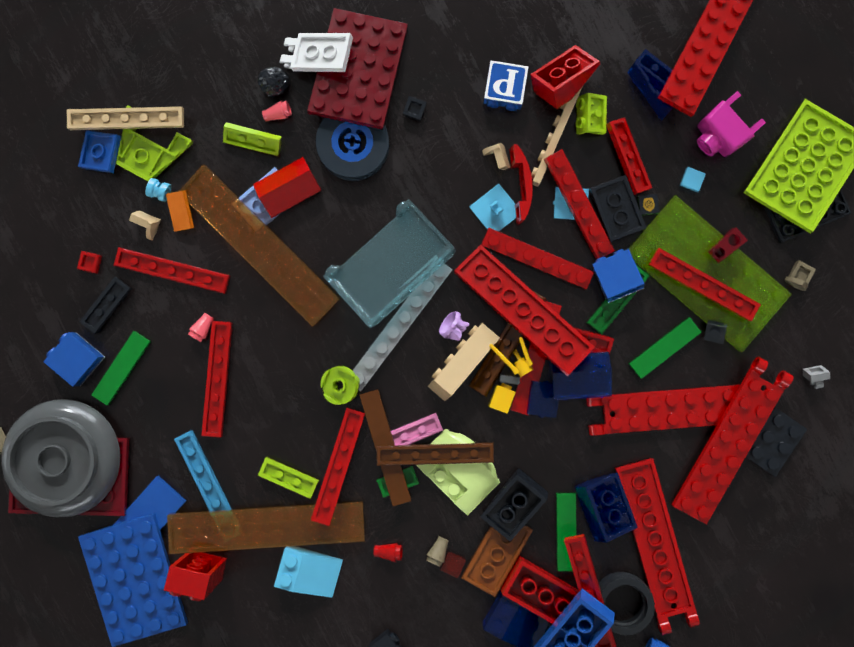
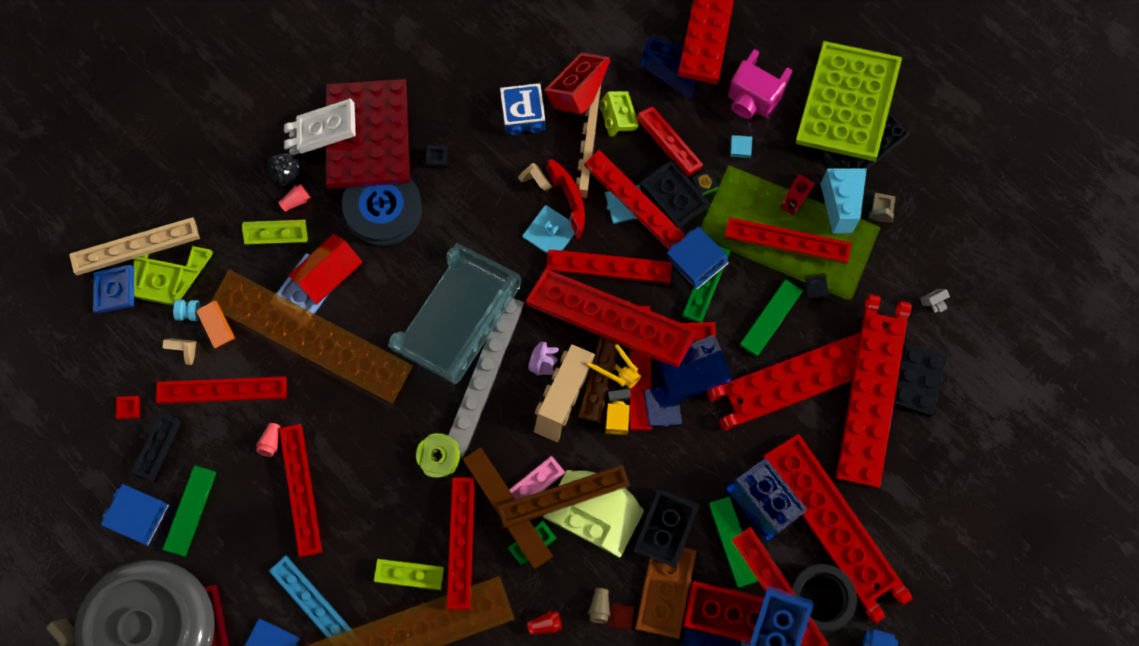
camera: 20 degrees left, 15 degrees down
(769, 259) = (843, 197): none -> medium azure wedge

